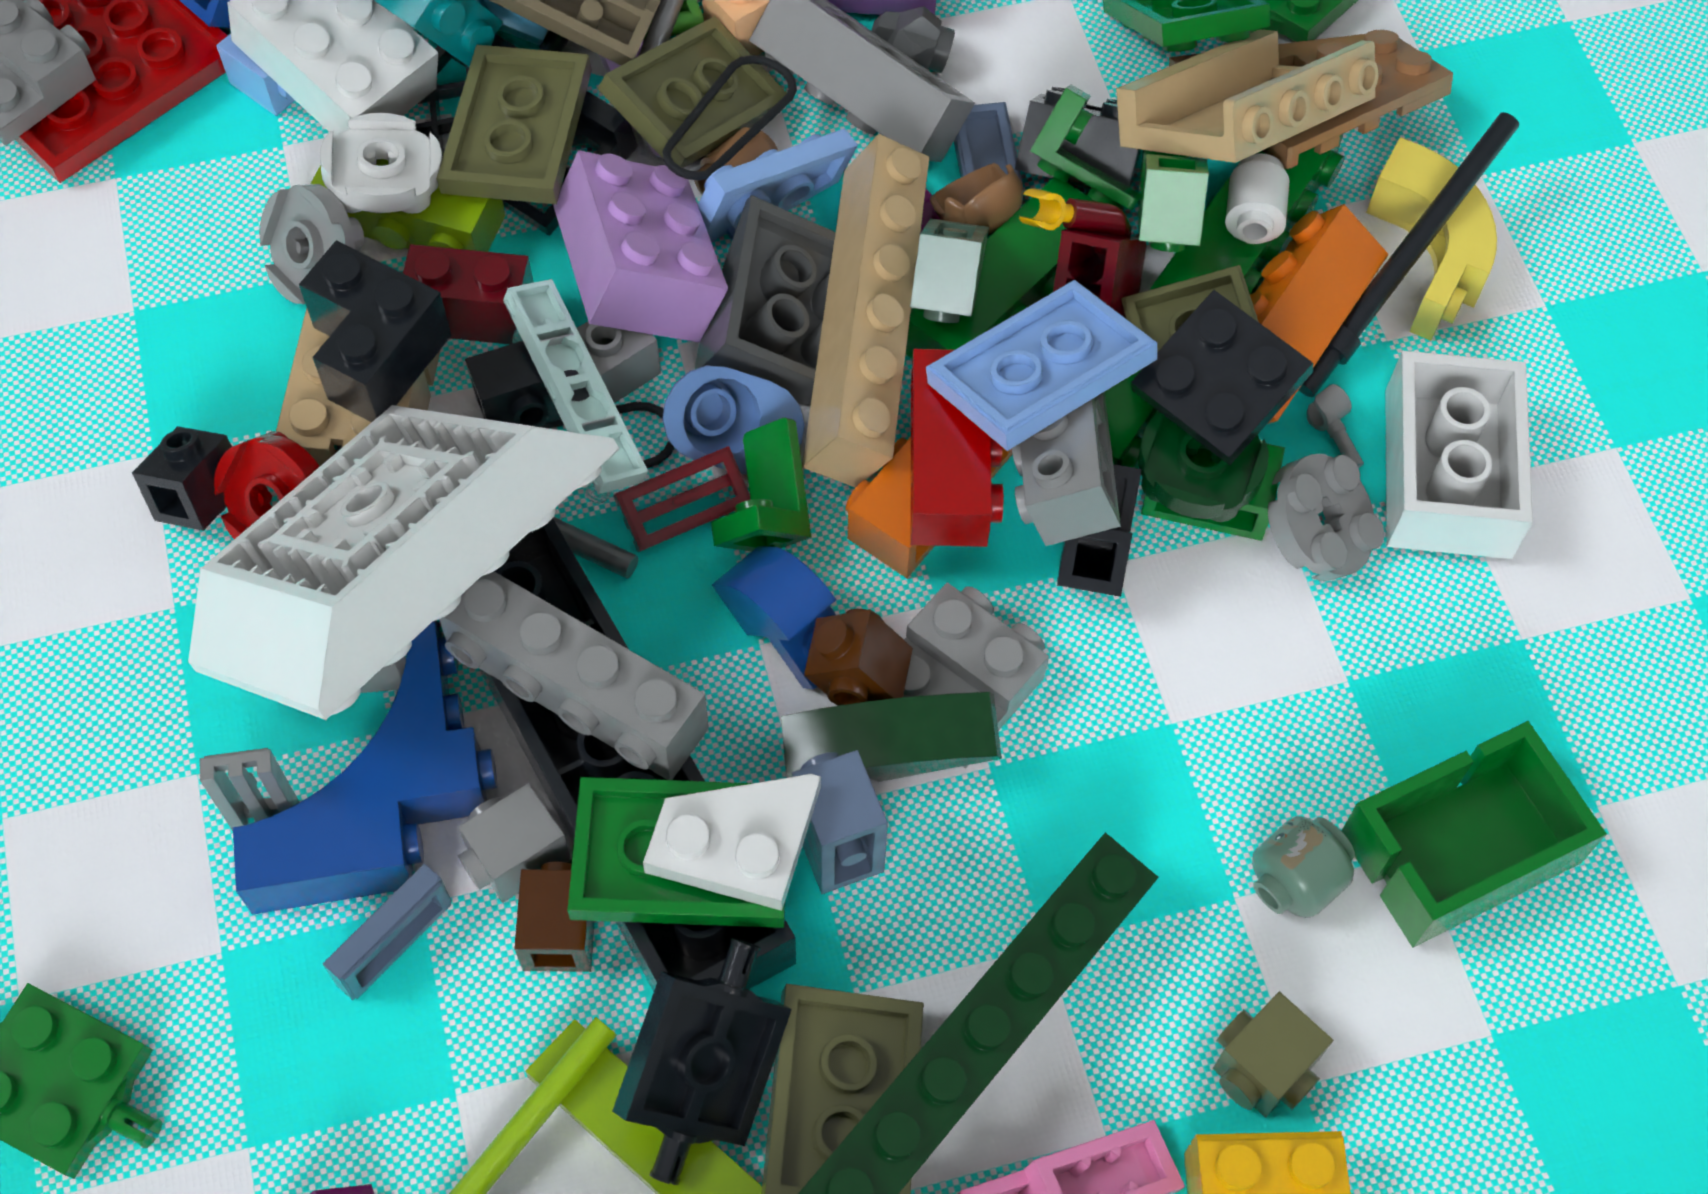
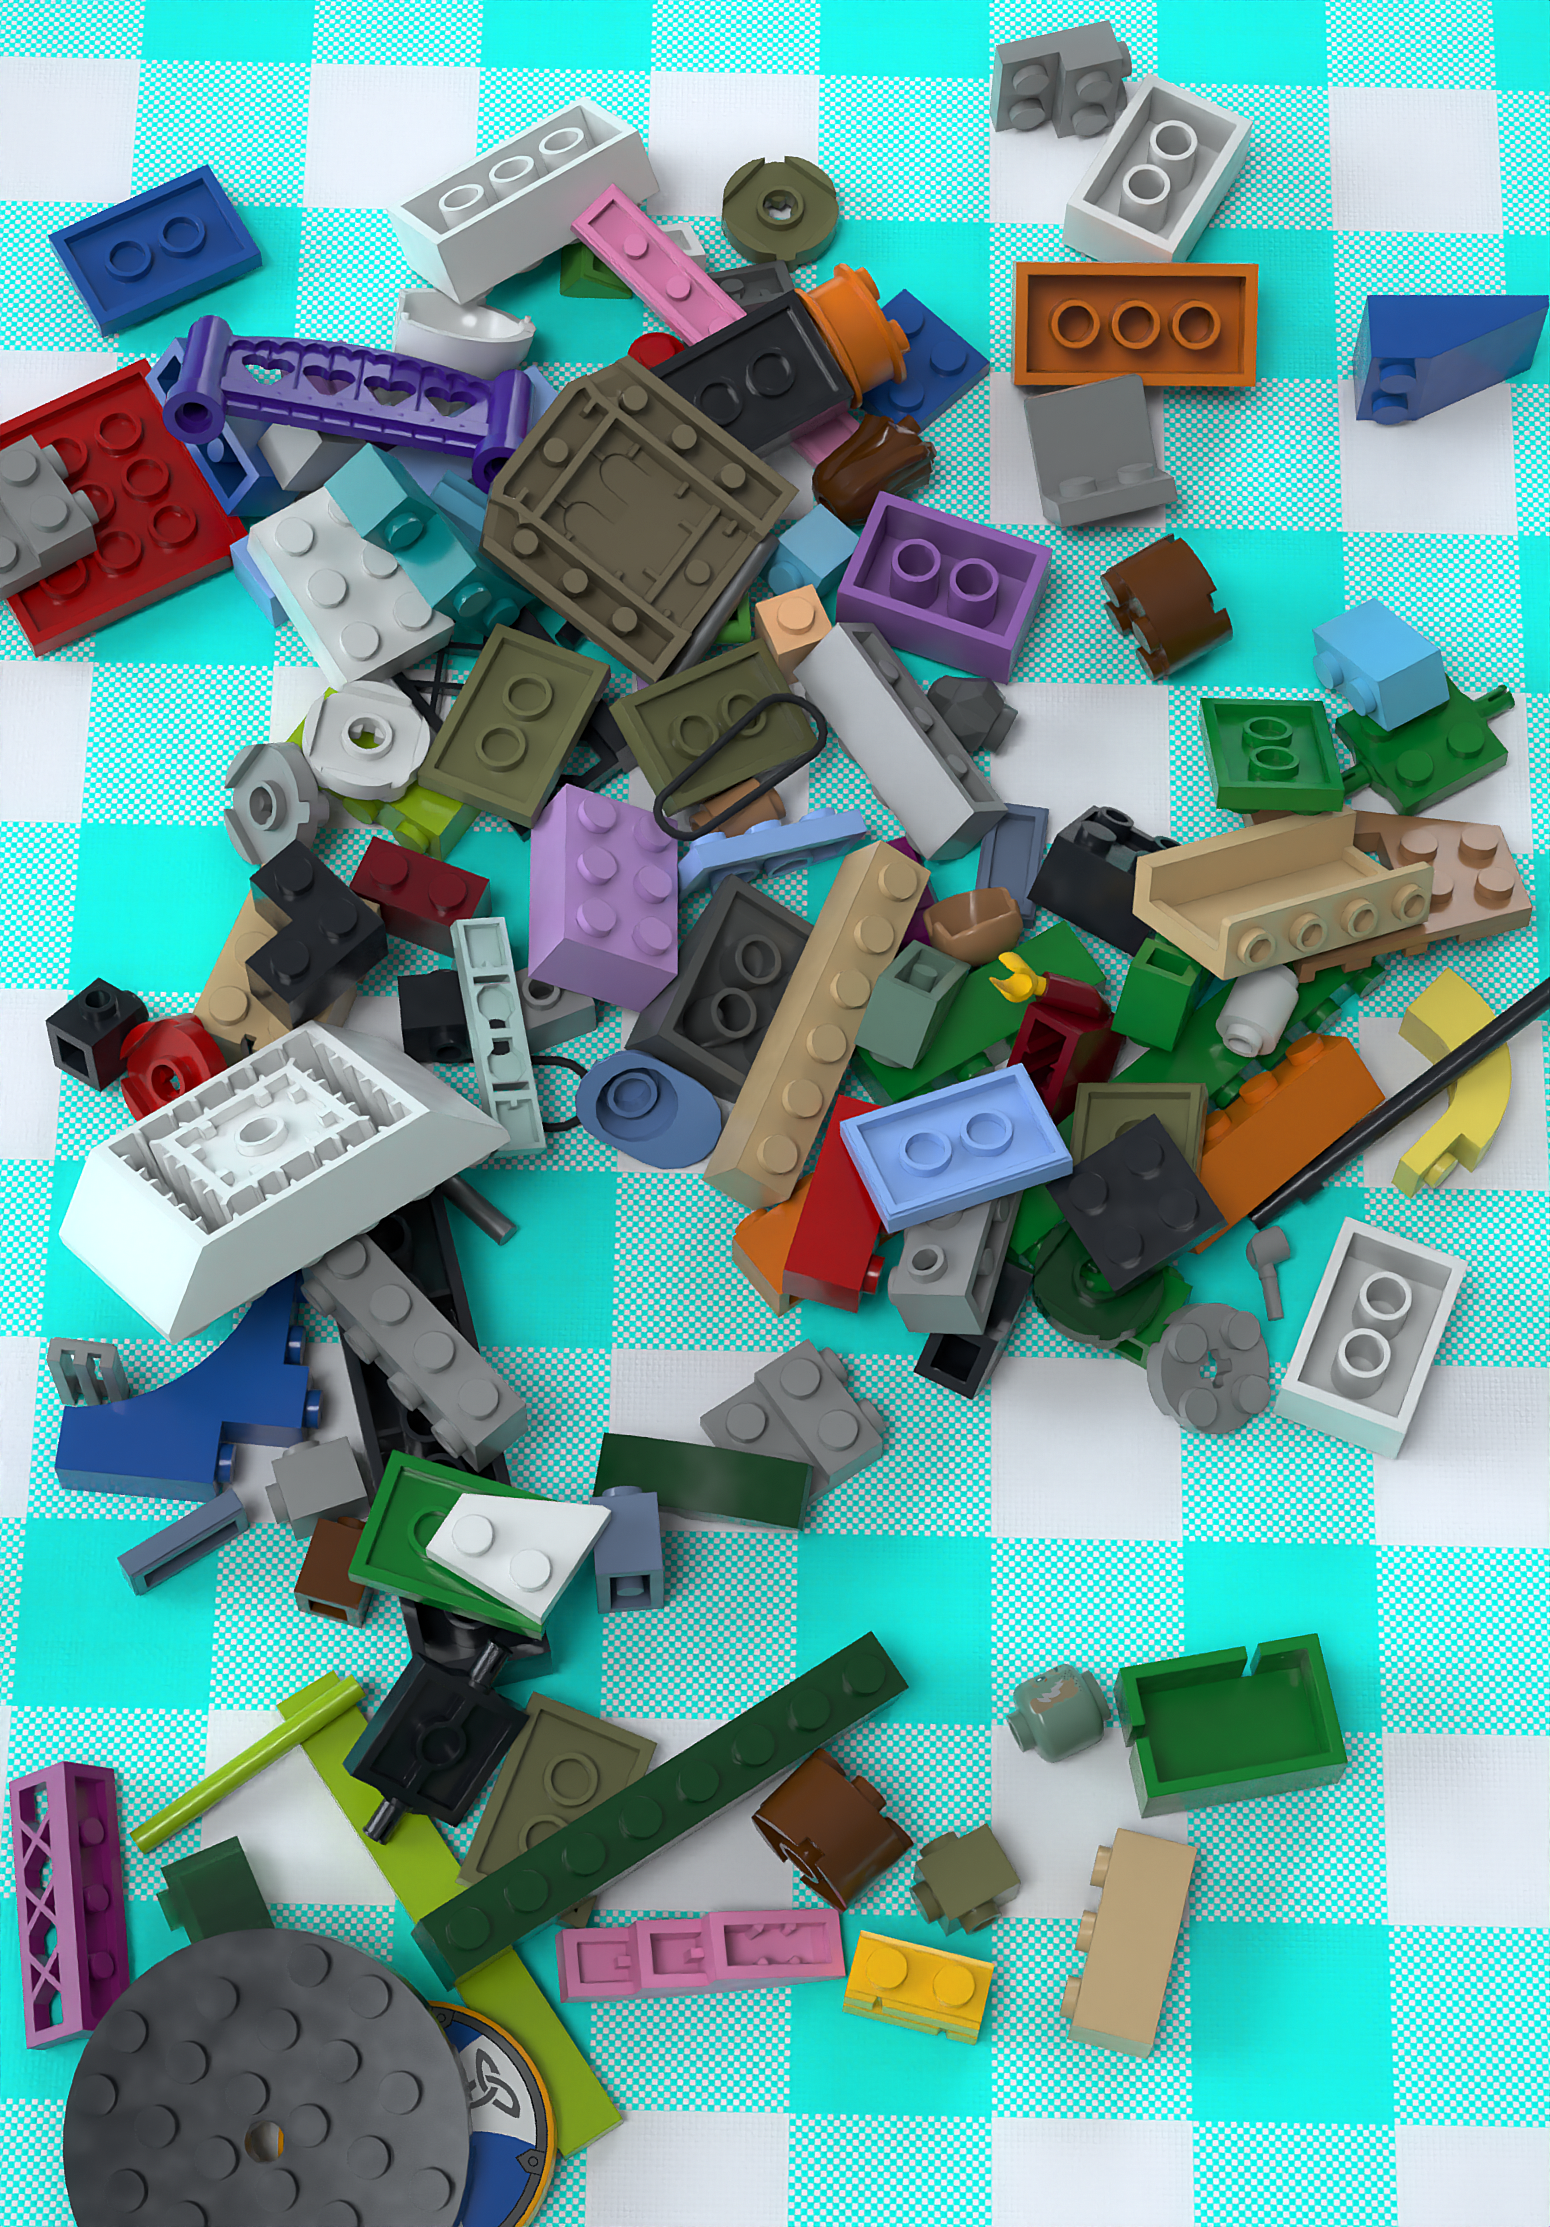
camera: 15 degrees right, 5 degrees up
(634, 519) = (524, 1187): dark red tile -> none
(778, 500) = (670, 1198): green bracket -> none
(778, 600) = (645, 1327): blue brick -> none
(857, 658) = (693, 1397): reddish brown brick -> none
(1068, 124) = (1072, 913): green bracket -> none
(1130, 1041) = (831, 1830): none -> reddish brown brick
(1454, 1074) = (1128, 1942): none -> tan brick

